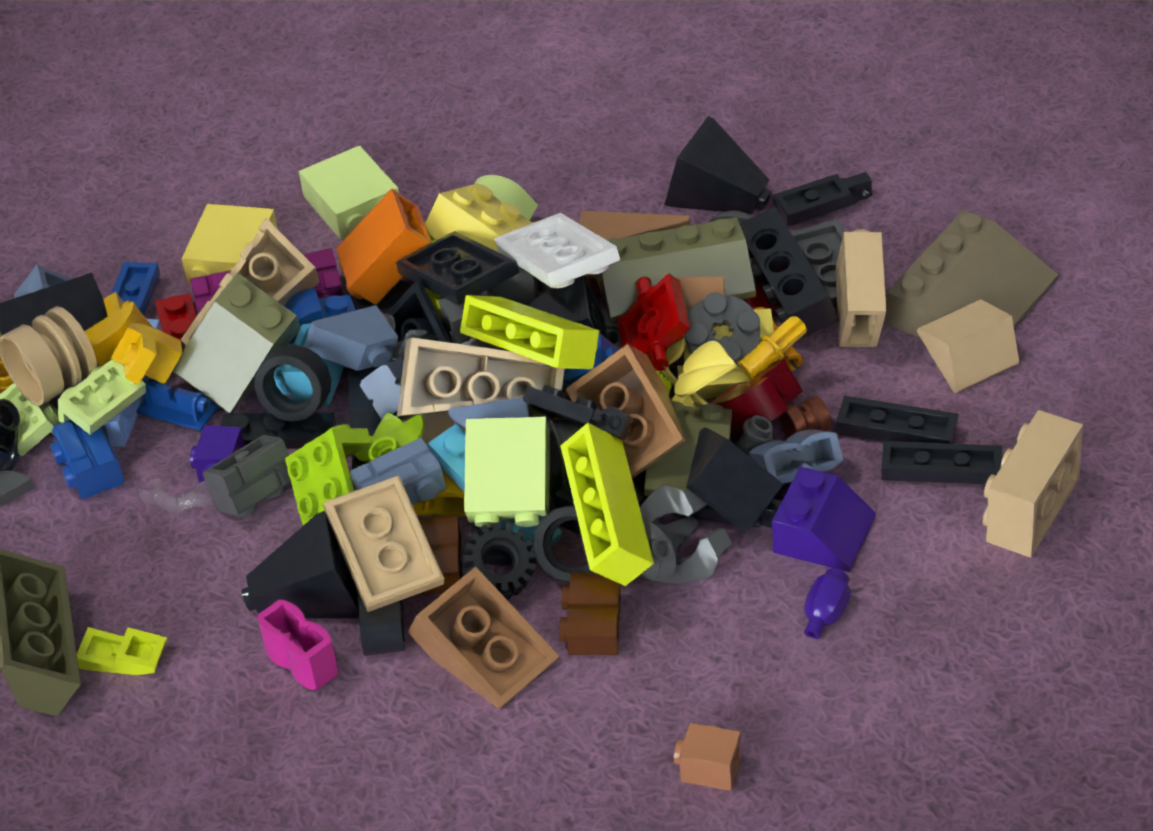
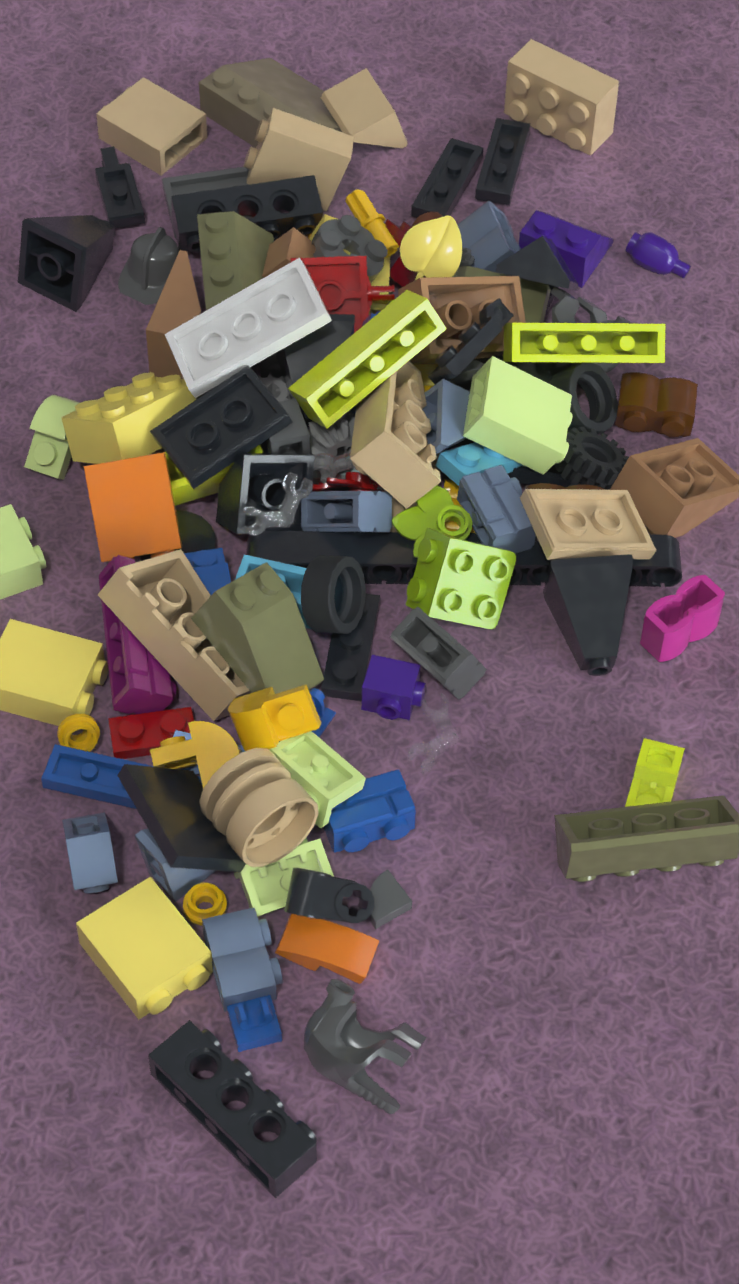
camera: 90 degrees left, 10 degrees up
(170, 276) = (84, 741): none -> yellow plate
(353, 338) = (285, 530): sand blue slope -> none
(914, 202) = (152, 126): none -> tan brick

